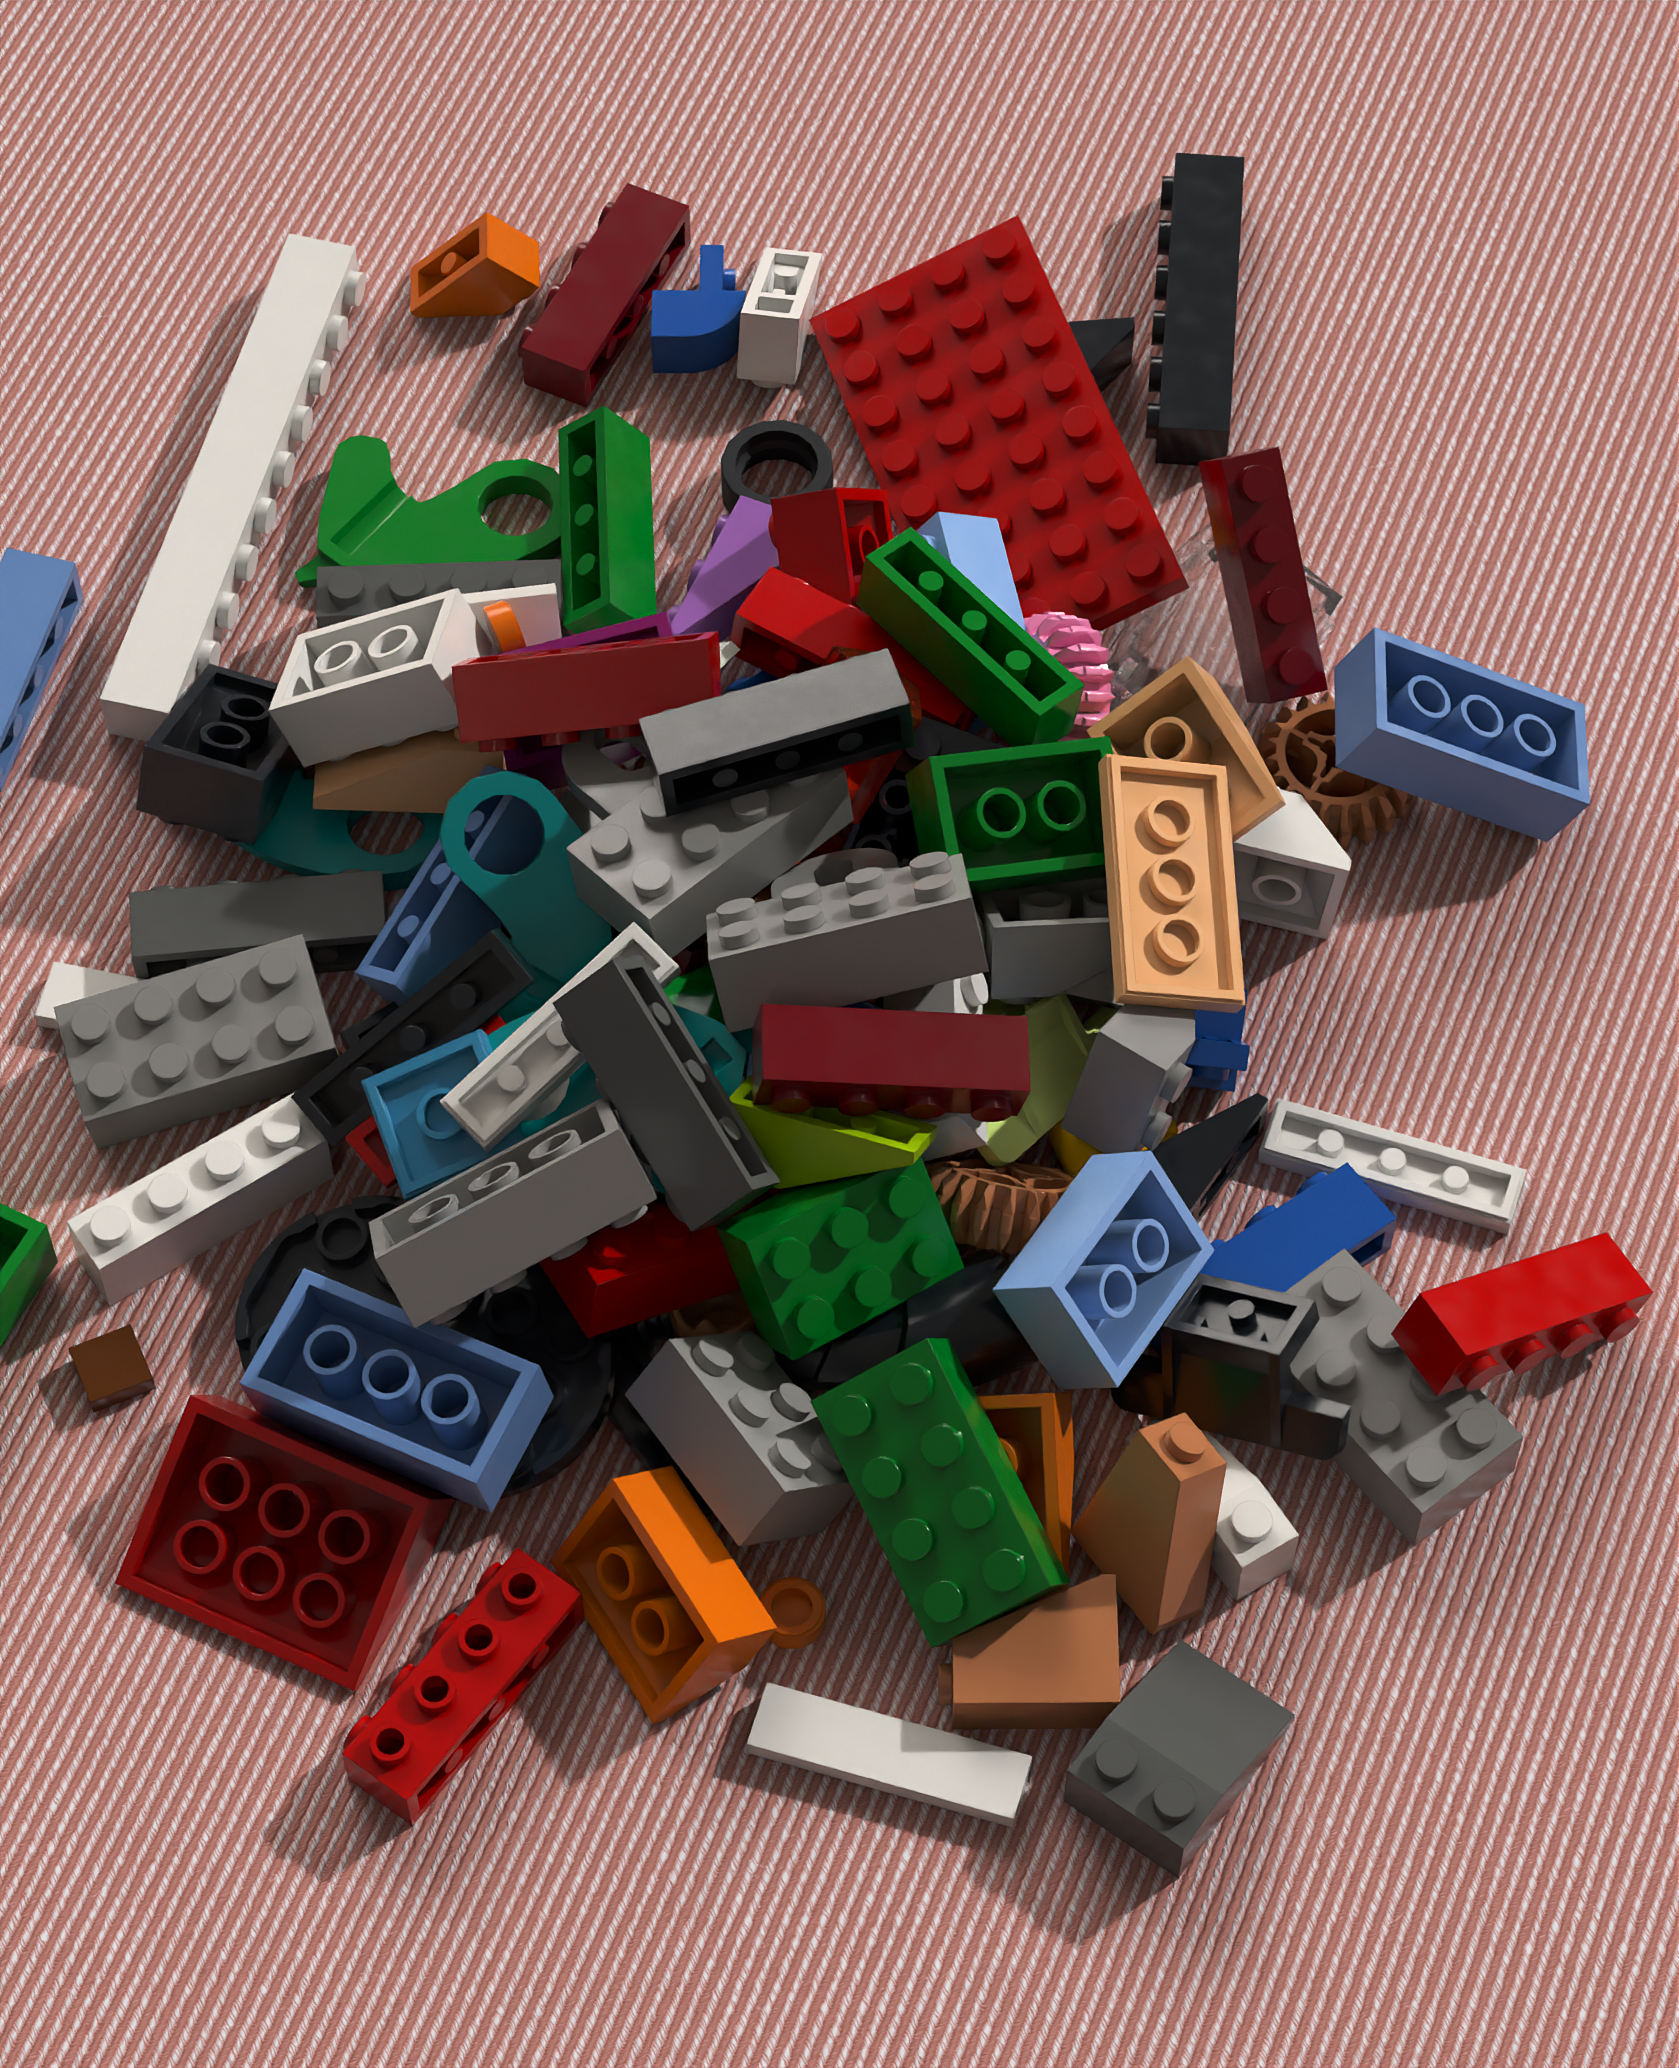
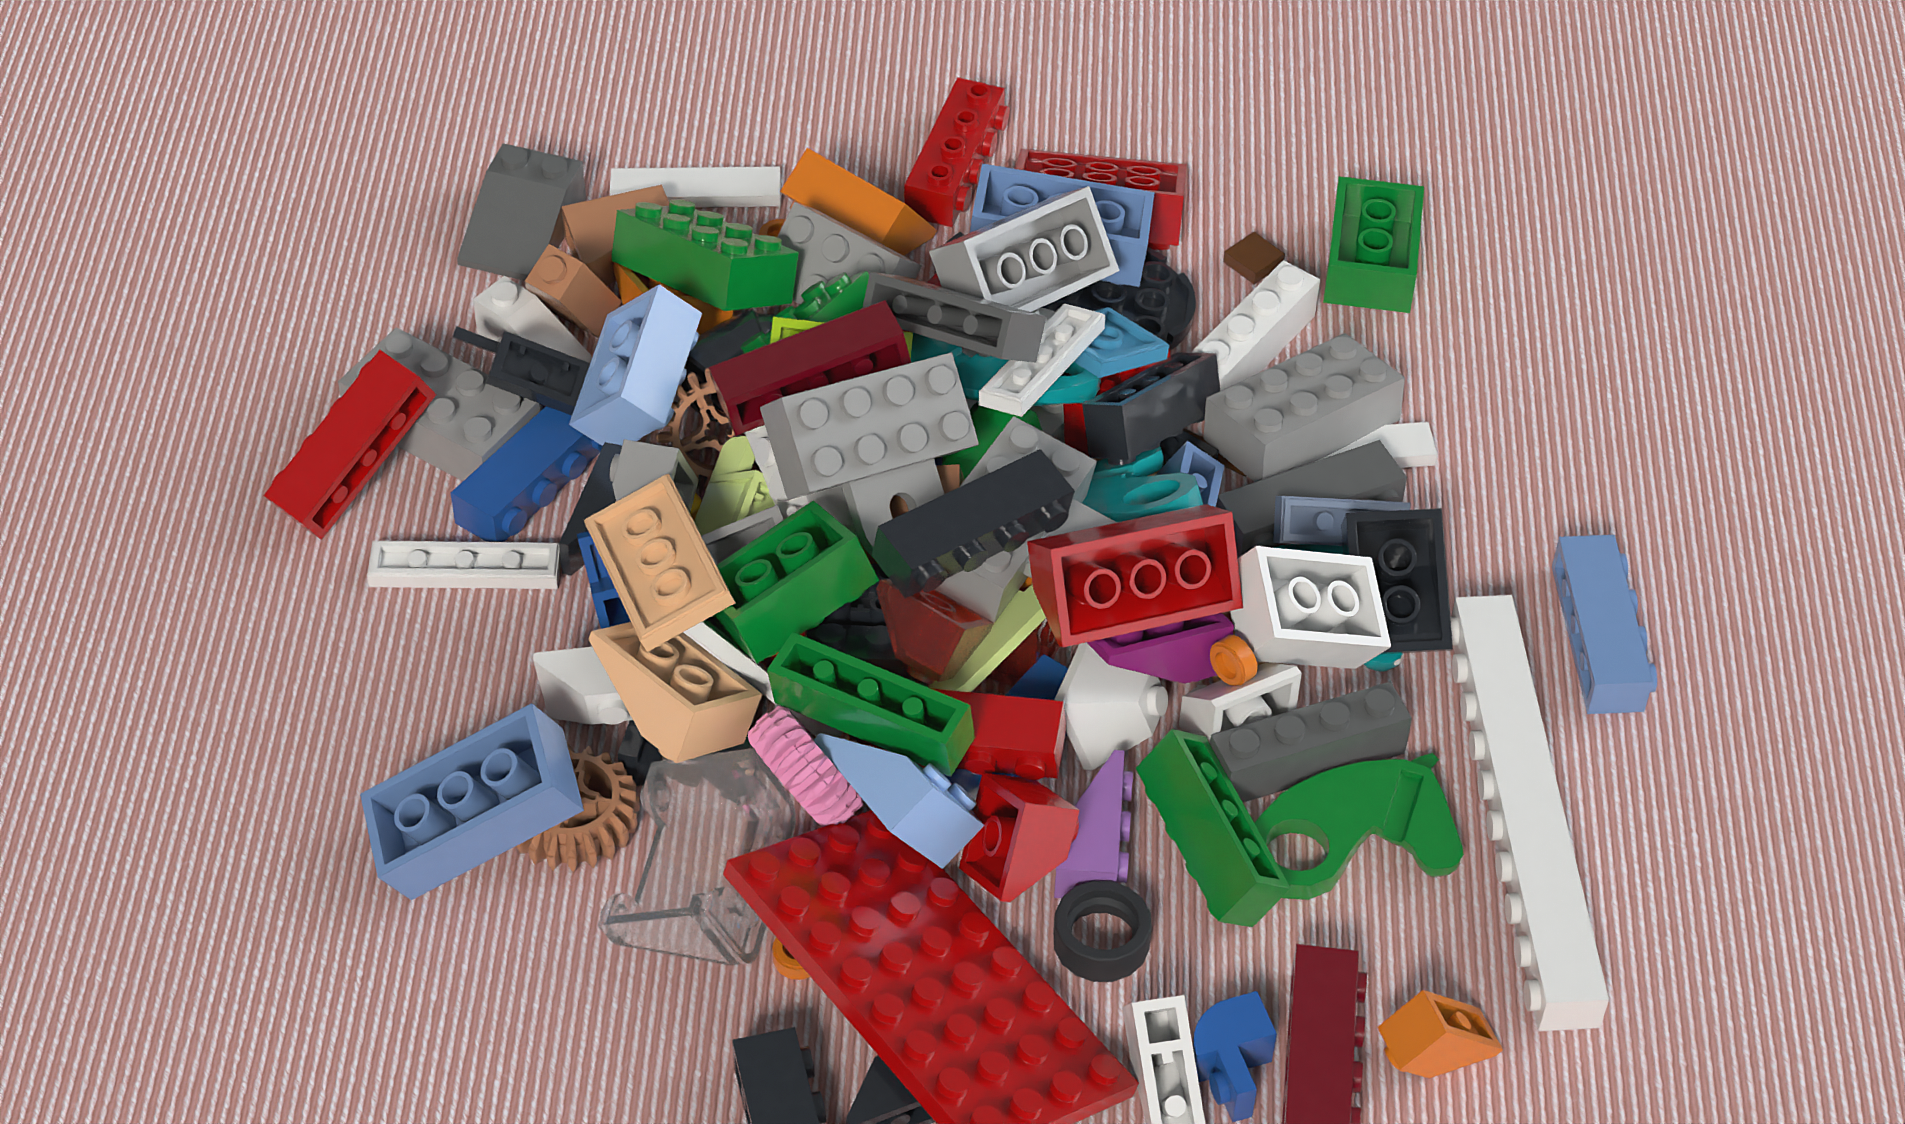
camera: 160 degrees right, 10 degrees down
(244, 863) = (1320, 519): none -> sand blue tile
(1263, 576) = (663, 867): dark red brick -> none

